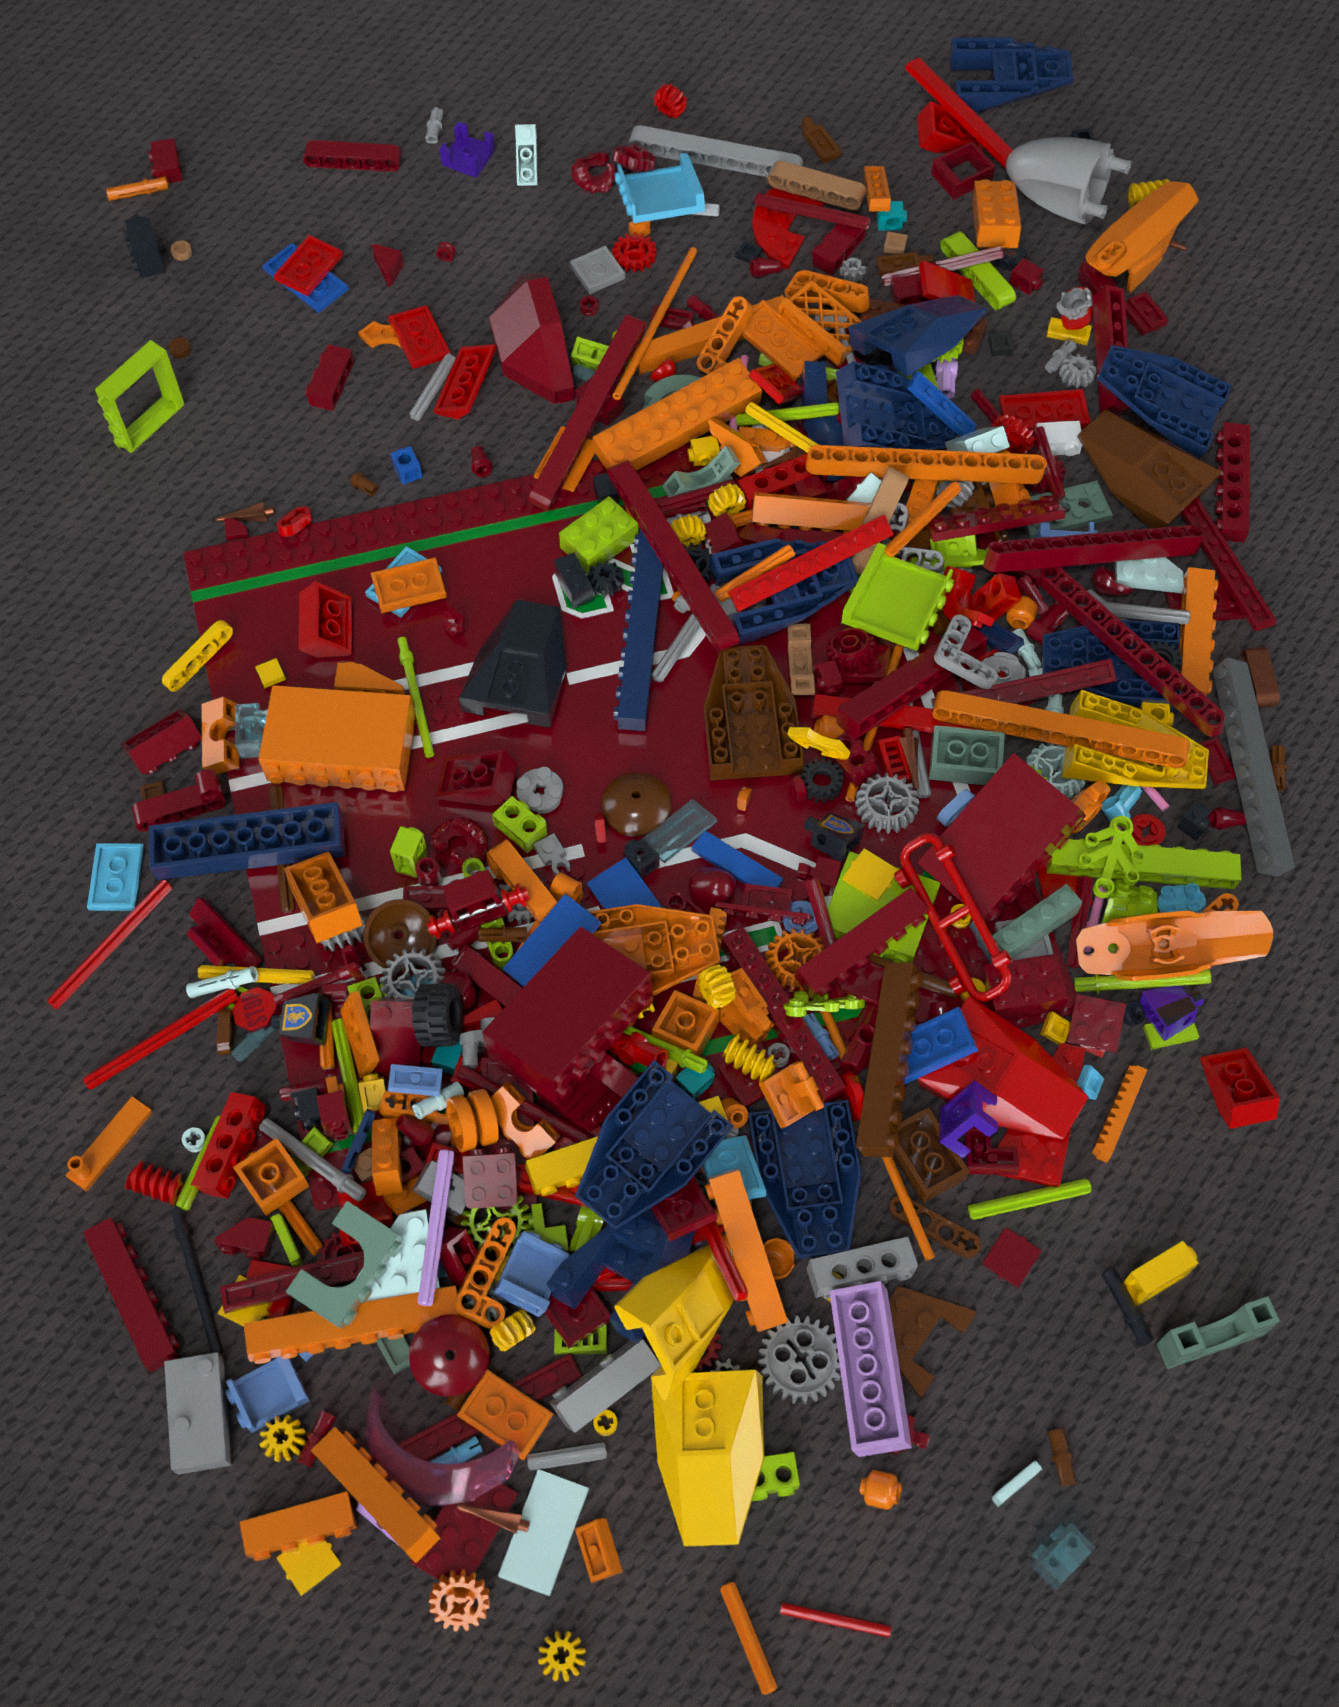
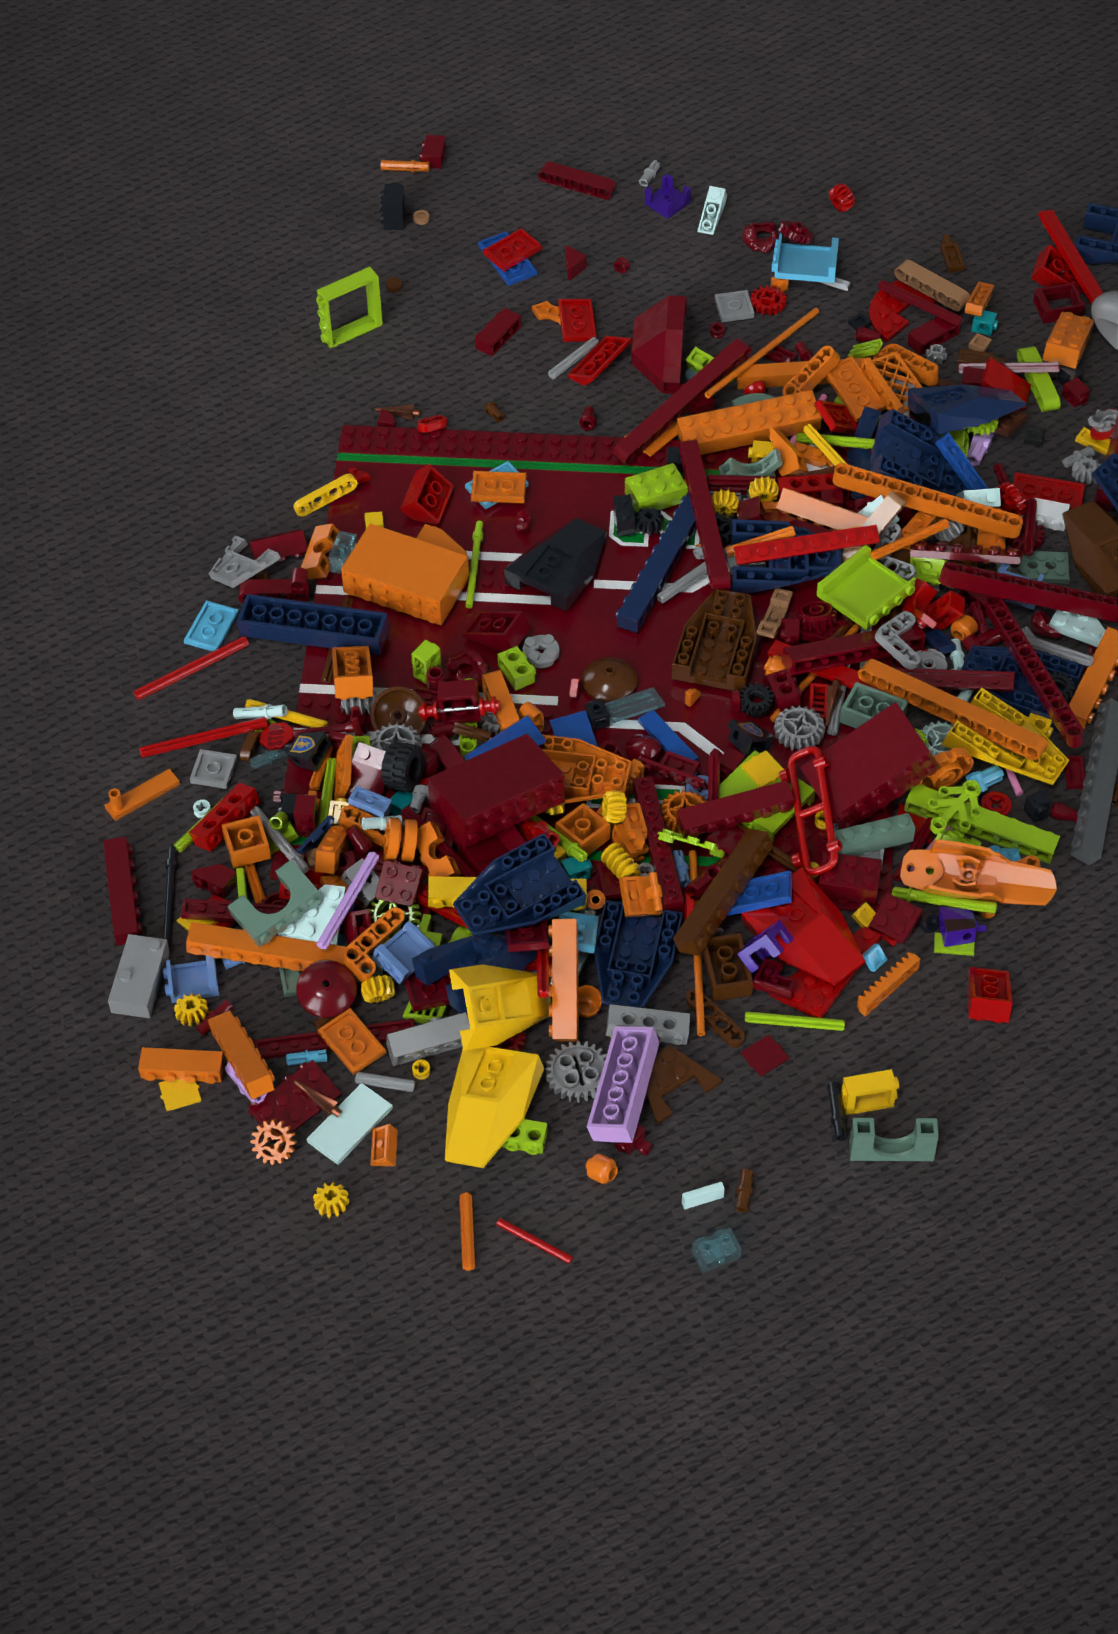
camera: 20 degrees right, 10 degrees down
(120, 790) = (236, 568): none -> light grey wing
(155, 1183) = (164, 826): red piece -> none
(189, 1079) = (213, 769): none -> light grey plate
(218, 939) = (268, 683): dark red bracket -> none
(231, 617) = (360, 476): none -> red tile
(302, 1133) = (275, 824): none -> lime hinge
(406, 465) = (531, 406): blue brick -> none
(430, 1481) = (290, 1061): clear pink windscreen -> none
(551, 852) = (533, 693): light grey plate -> none
(709, 151) = (858, 241): light grey beam -> none
(771, 286) = (866, 349): none -> lime tile
(829, 747) = (767, 673): yellow tile -> none

